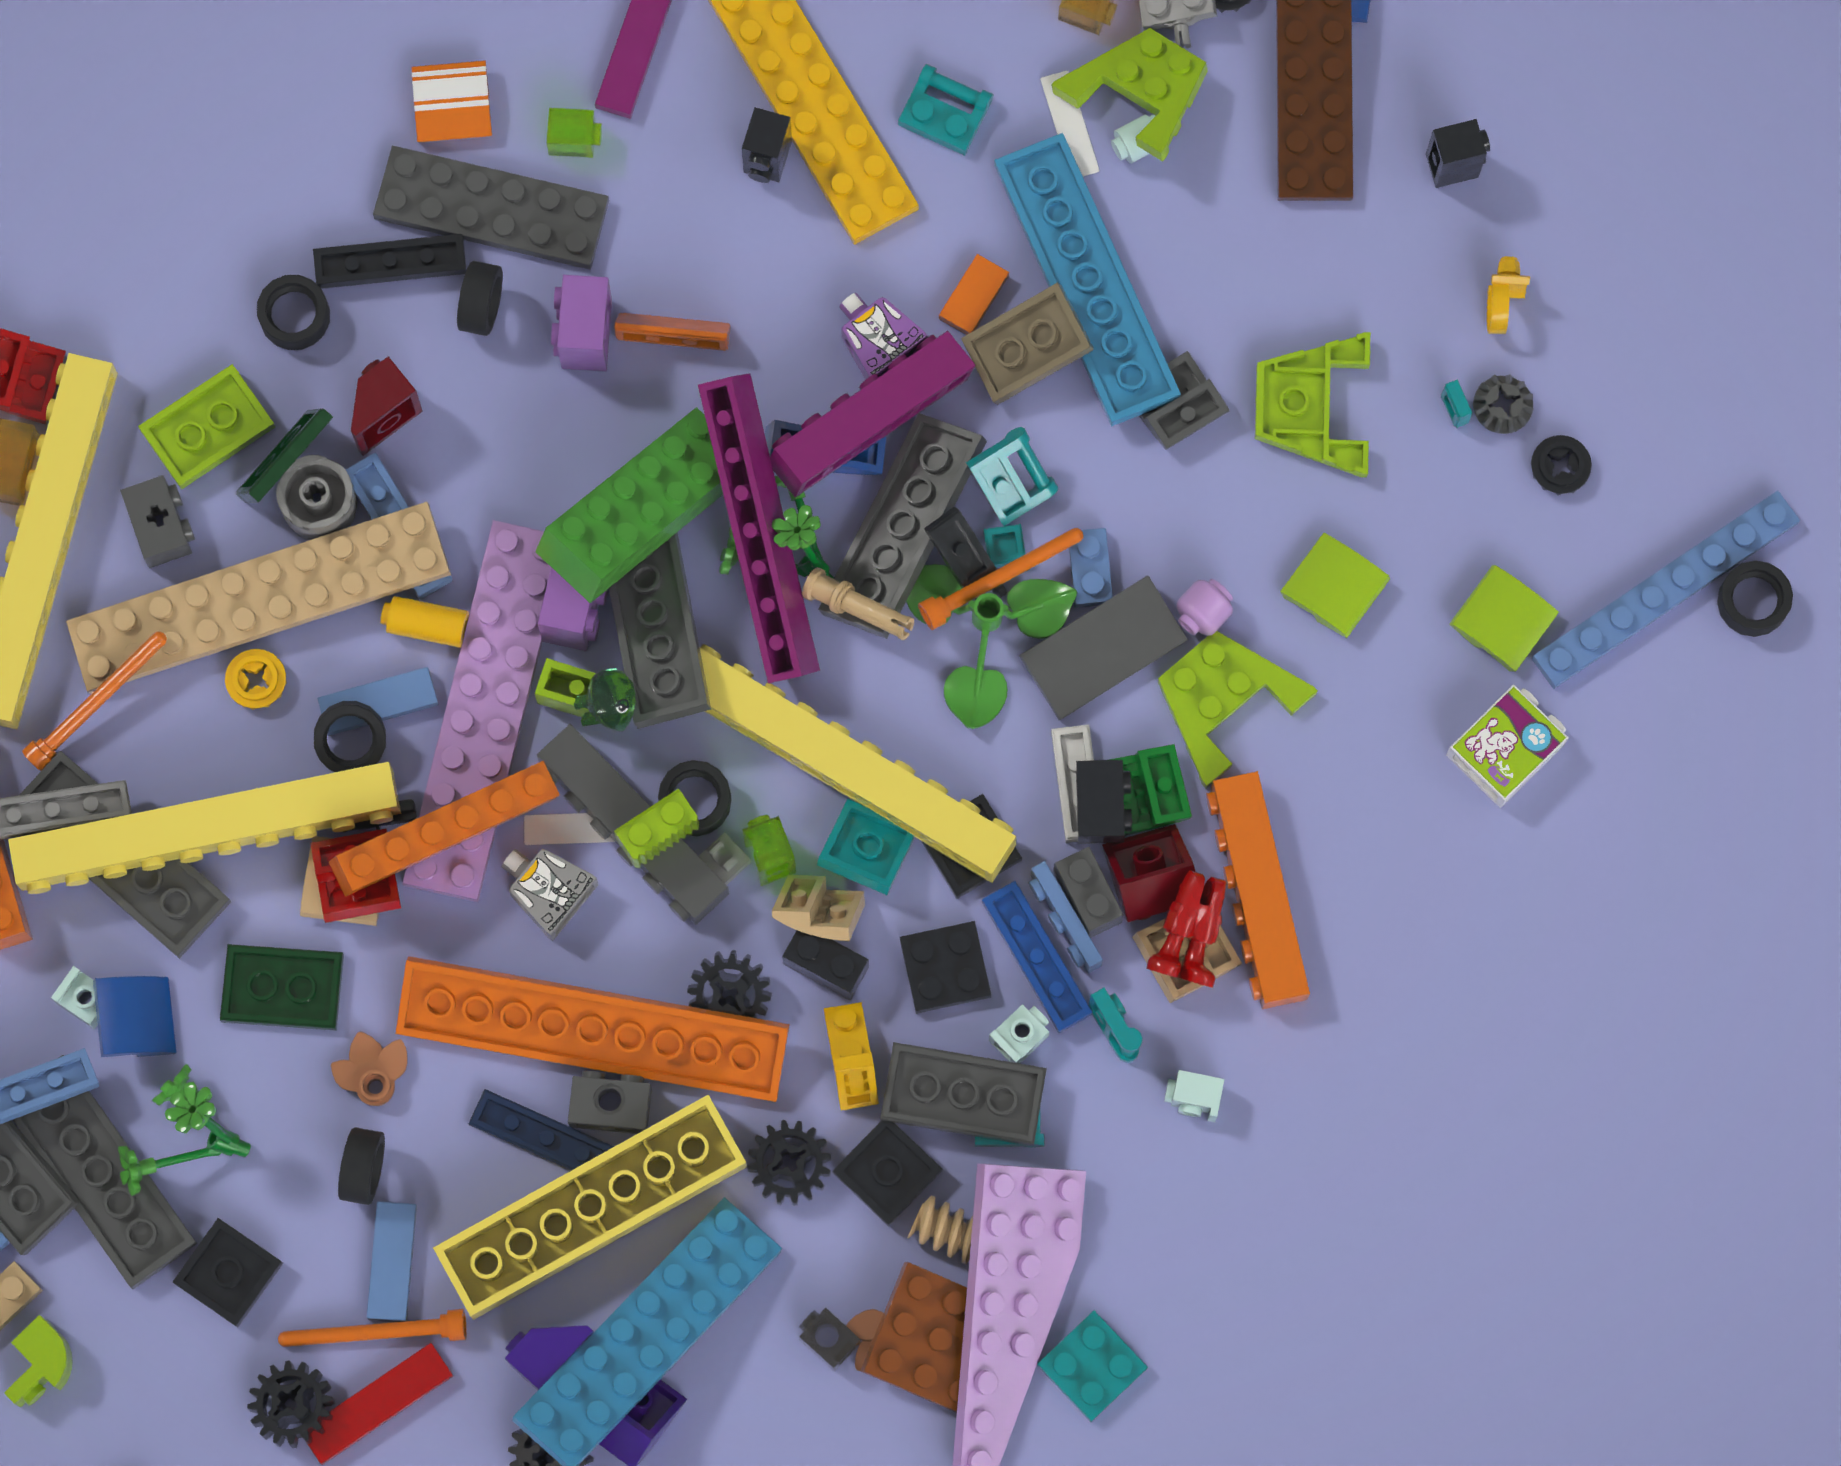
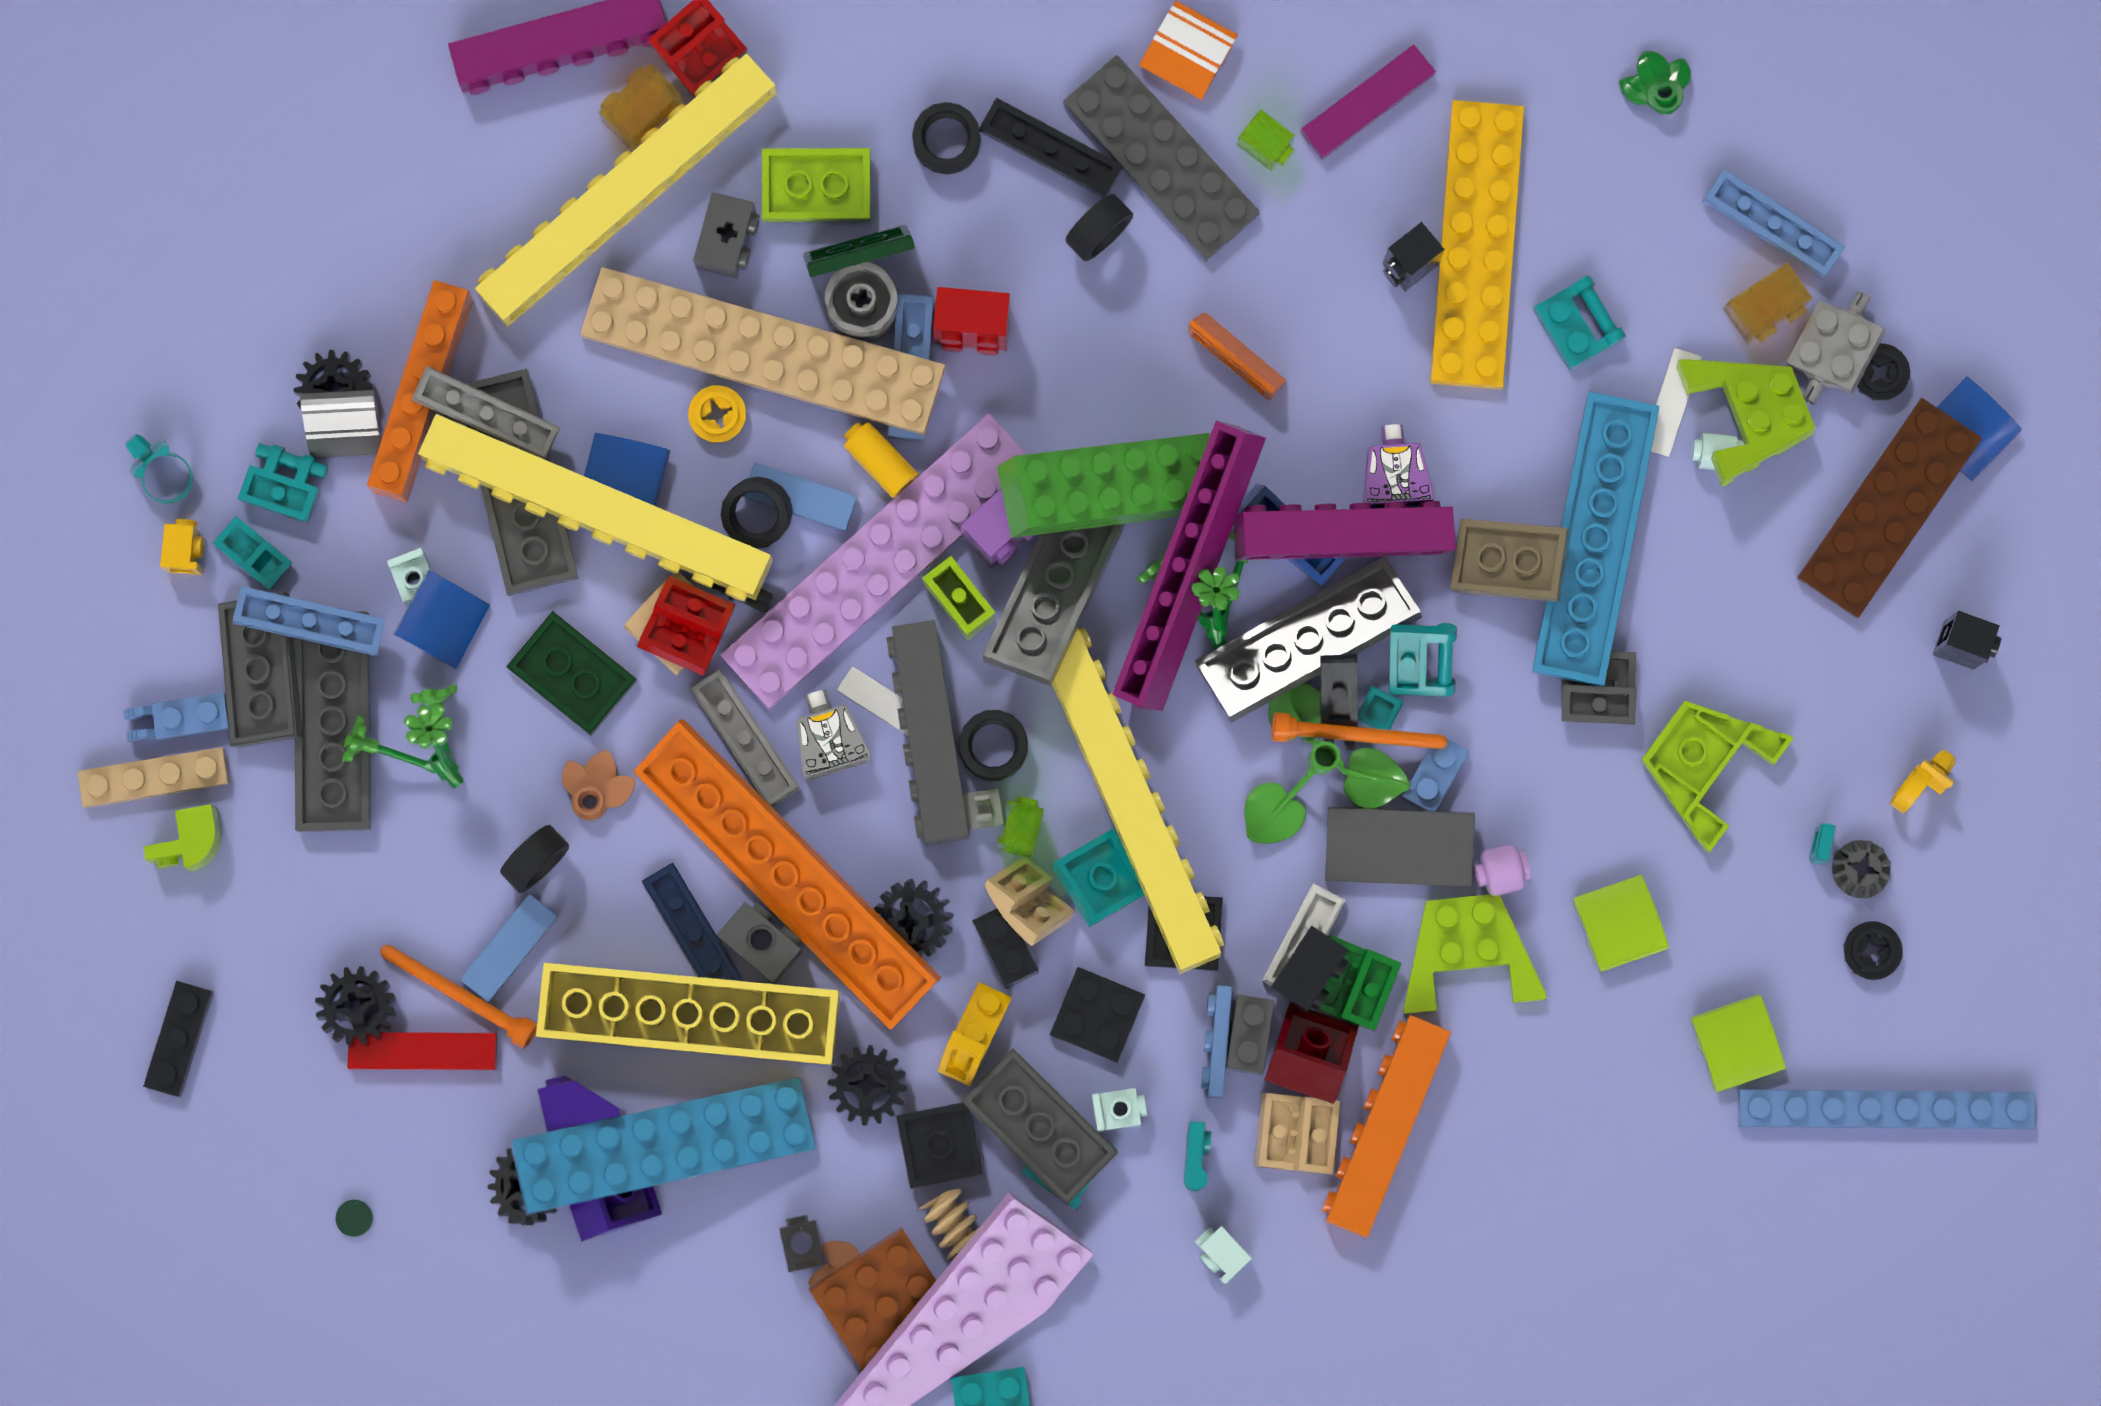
camera: 35 degrees right, 5 degrees up
(43, 751) = (515, 359): orange piece -> none
(207, 773) = (628, 466): none -> blue slope
(227, 1272) = (377, 869): black plate -> none
(382, 404) = (962, 261): dark red slope -> none
(424, 448) = (971, 320): none -> red brick
(444, 828) = (778, 637): orange brick -> none
(472, 939) = (744, 738): none -> light grey tile
(584, 322) = (1167, 303): medium lavender brick -> none
(609, 700) = (974, 624): clear green piece -> none
(657, 828) = (943, 752): lime brick -> none
(843, 598) = (1218, 667): tan pin -> none
(973, 295) = (1496, 490): orange tile -> none
(1036, 957) = (1174, 1057): blue plate -> none
(1192, 916) = (1320, 1116): red piece -> none
(1508, 745) = (1668, 1147): brick -> none
(1771, 575) = (1978, 1155): black tyre -> none

